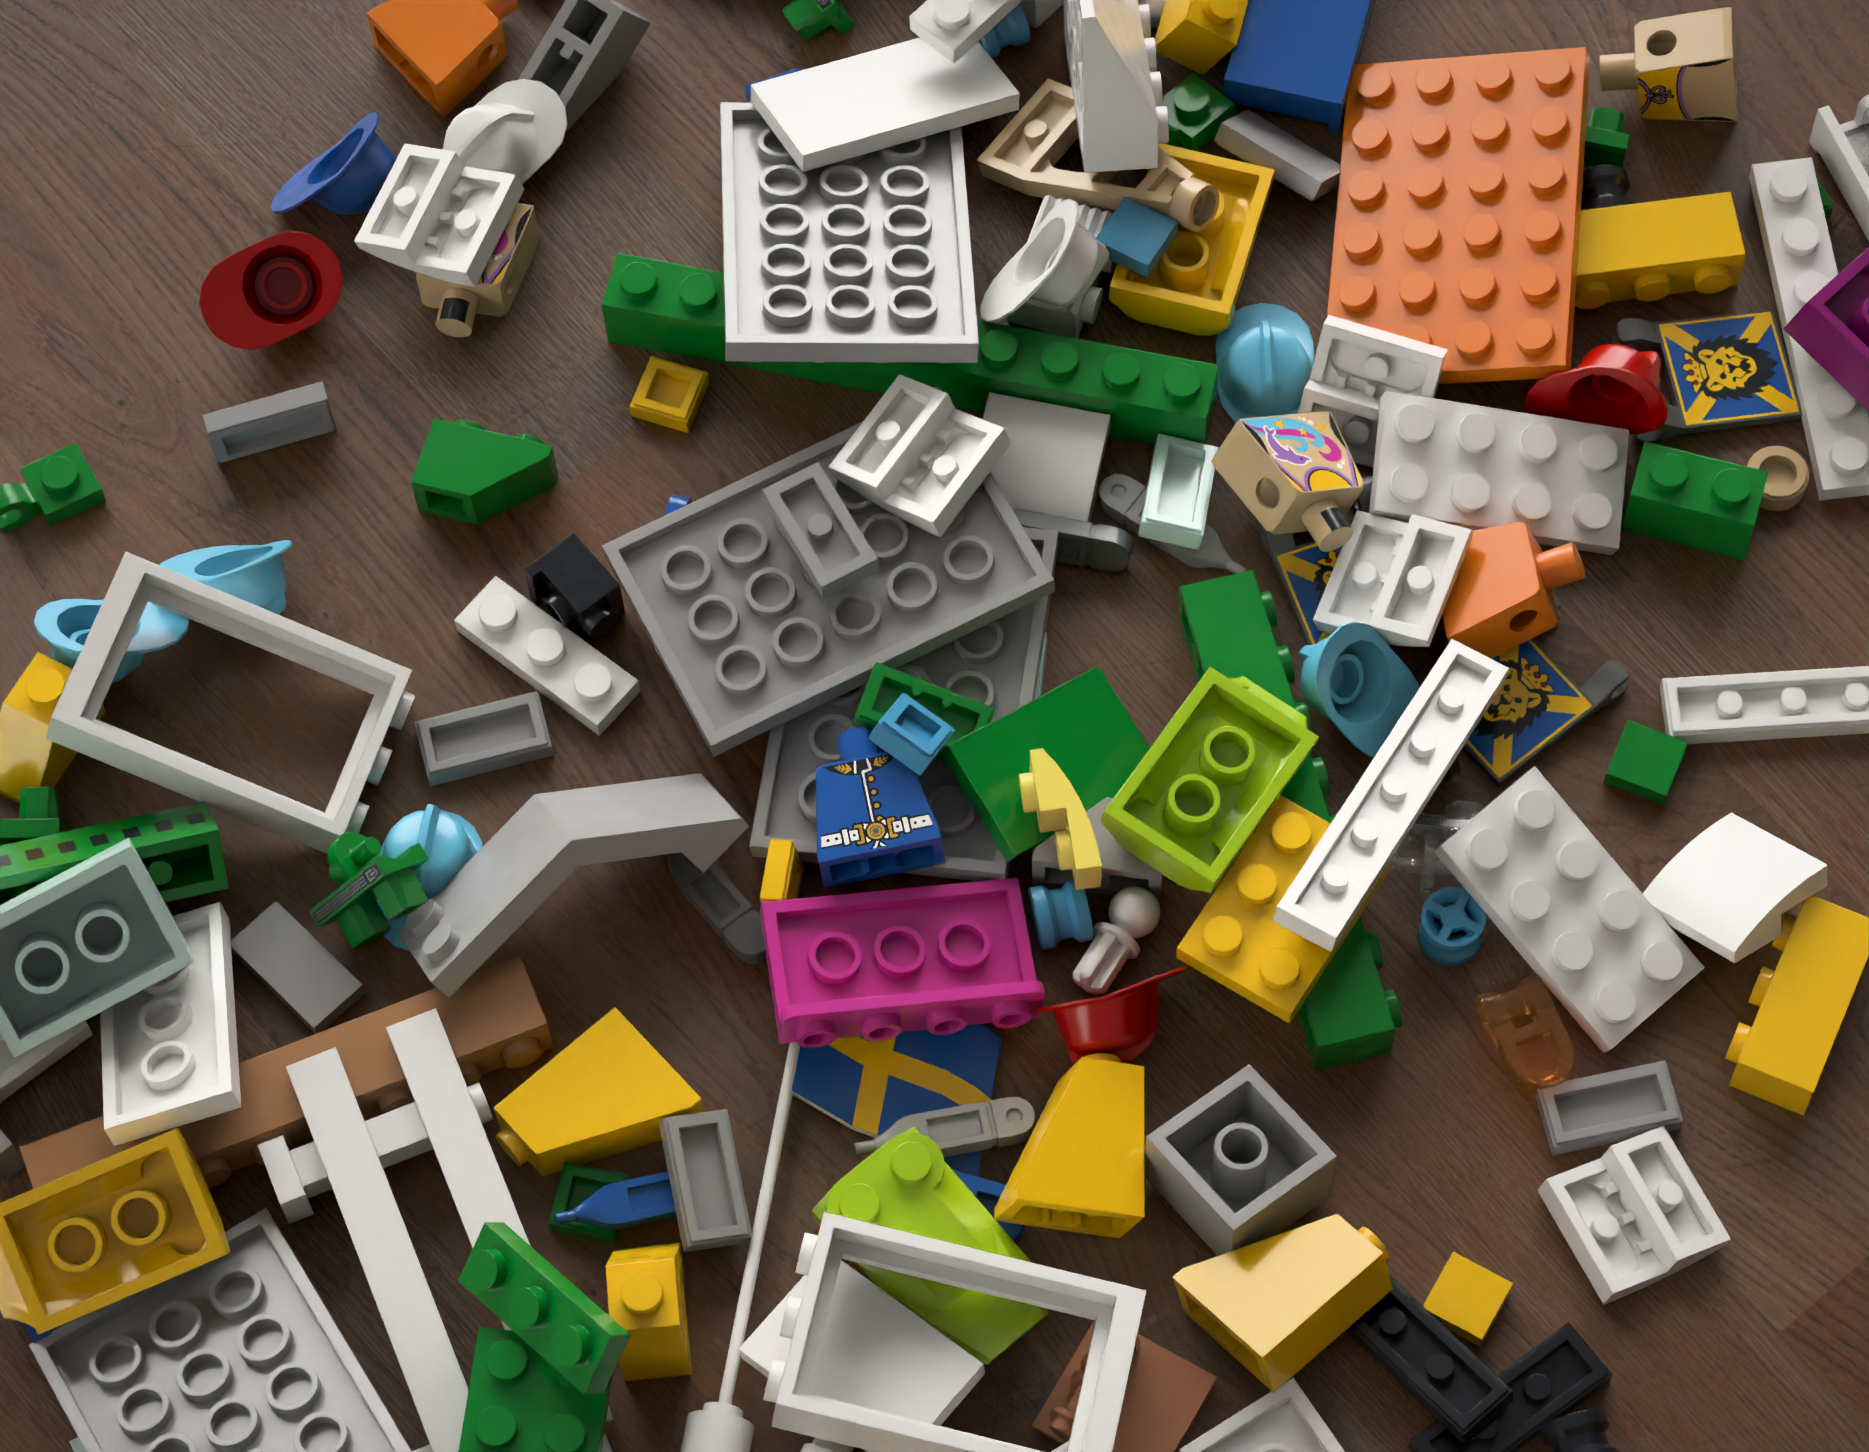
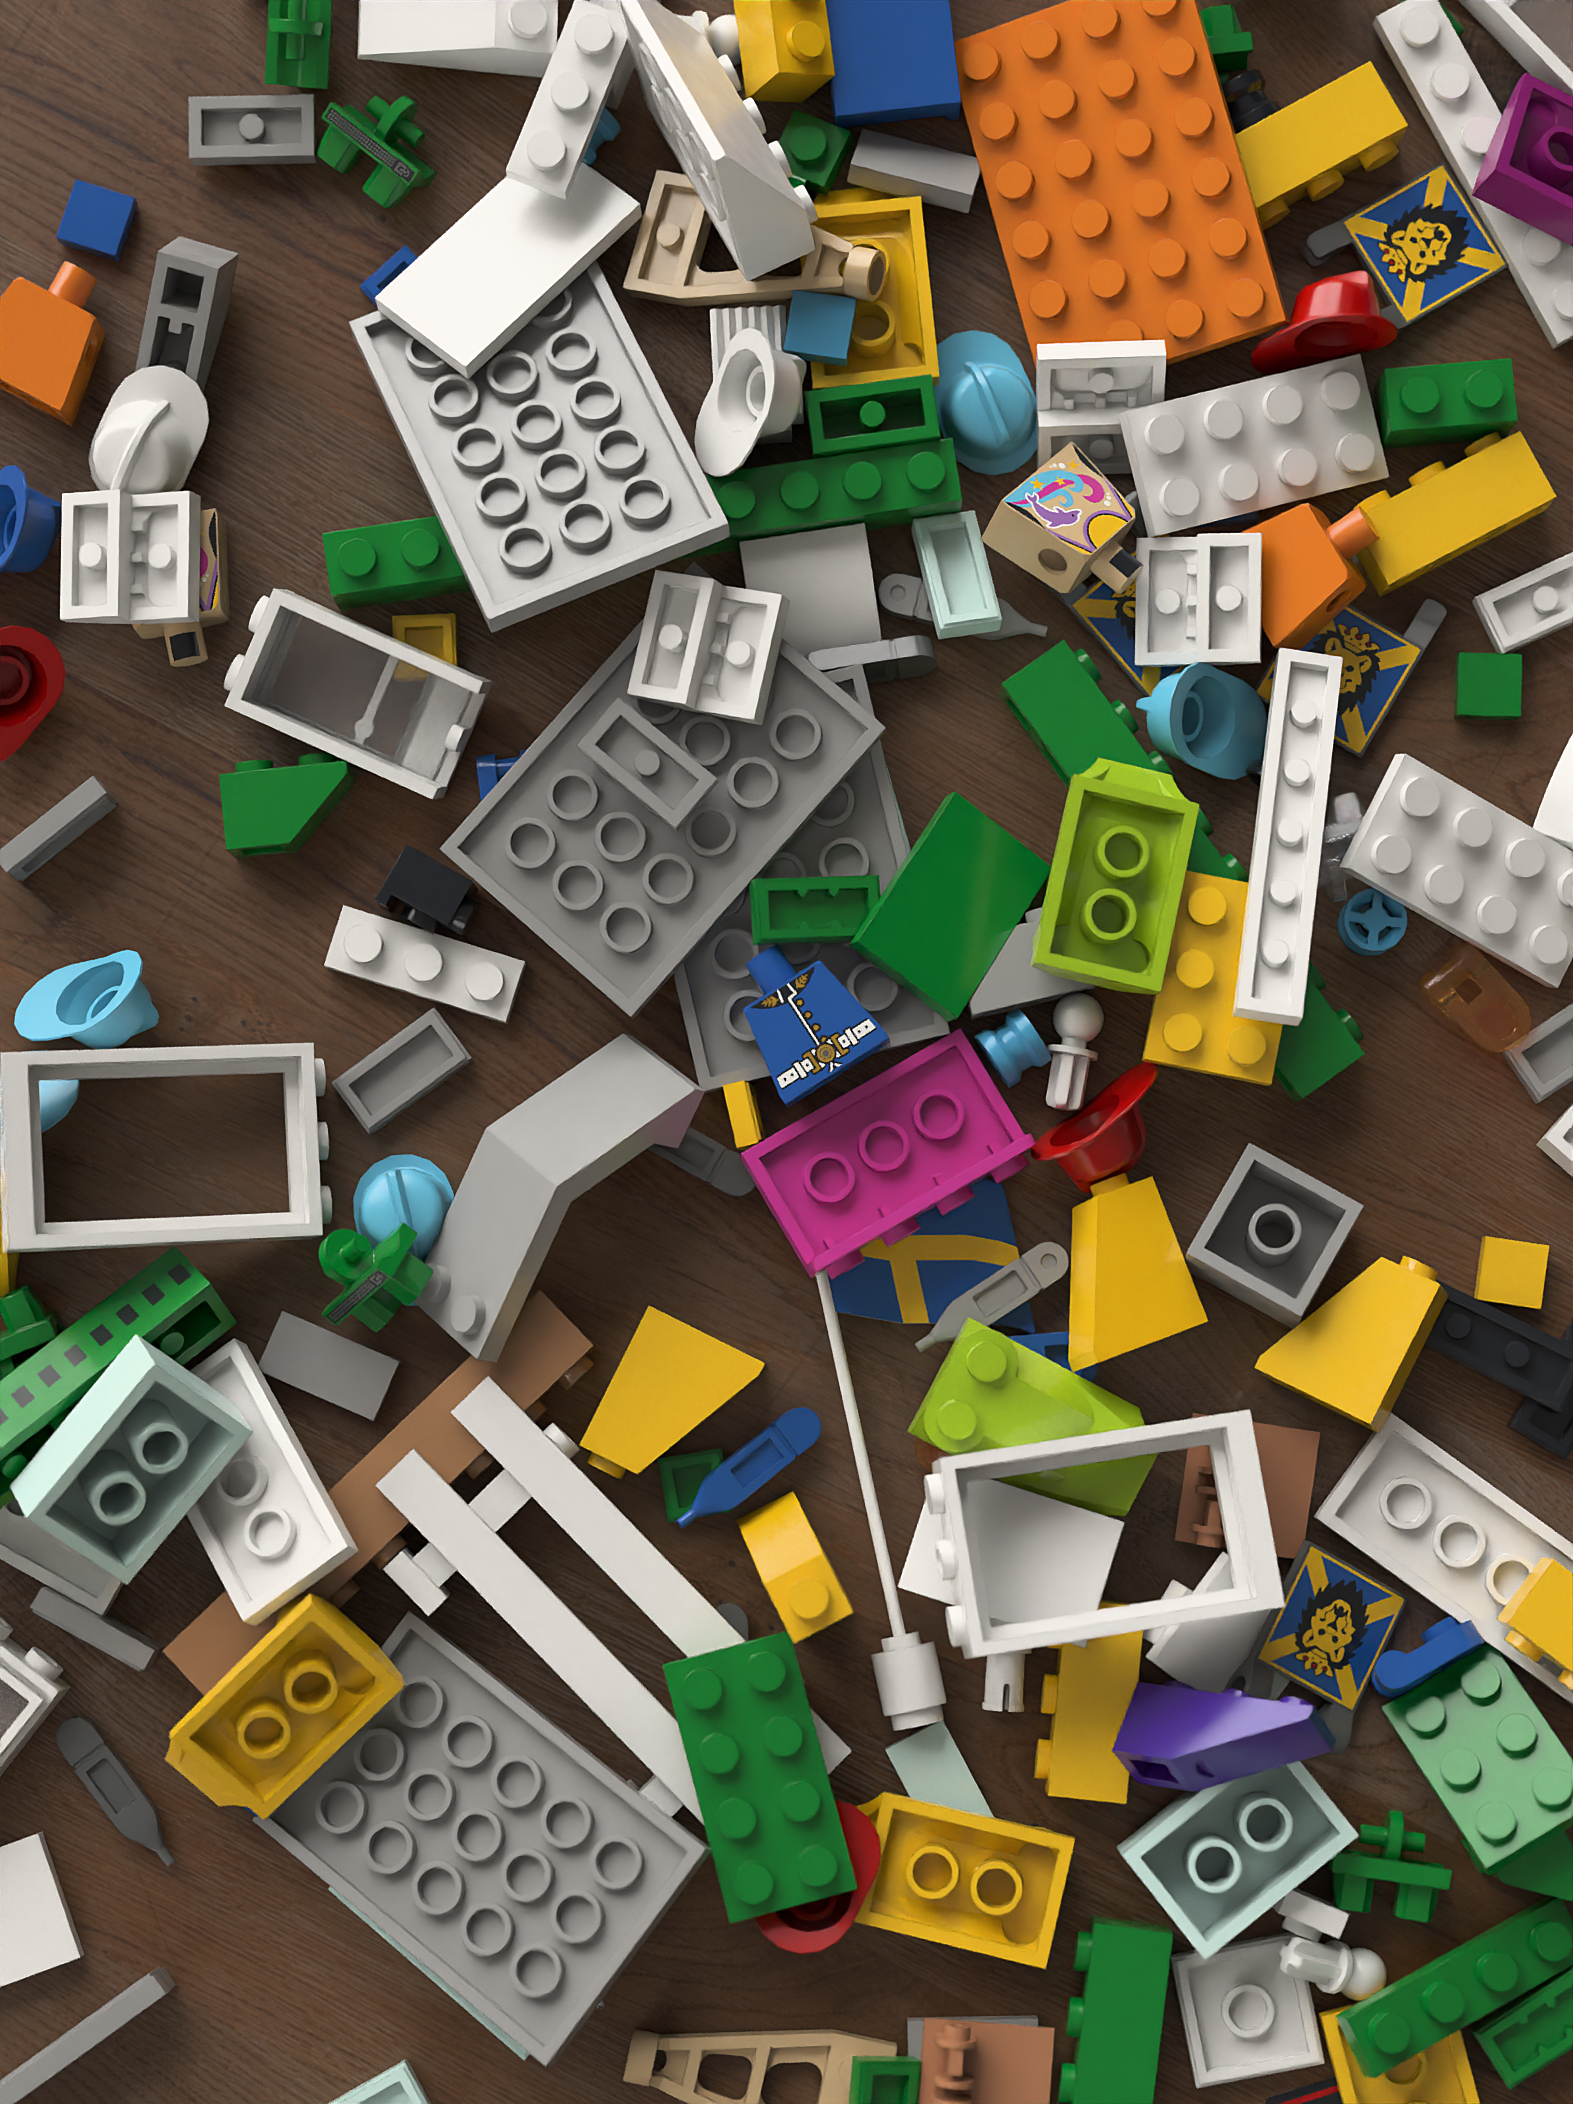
camera: 20 degrees left, 20 degrees up
(544, 1308) = (720, 1636): green plate -> none
(591, 400) = (355, 692): none -> clear door
(705, 1180) = (796, 1432): light grey tile -> none
(911, 734) = (820, 944): dark azure tile -> none
(1060, 808) = (976, 958): light yellow slope -> none
(1154, 321) = (871, 416): none -> green brick
(1666, 596) = (1453, 510): none -> yellow brick
(1785, 478) = (1508, 336): tan tile -> none

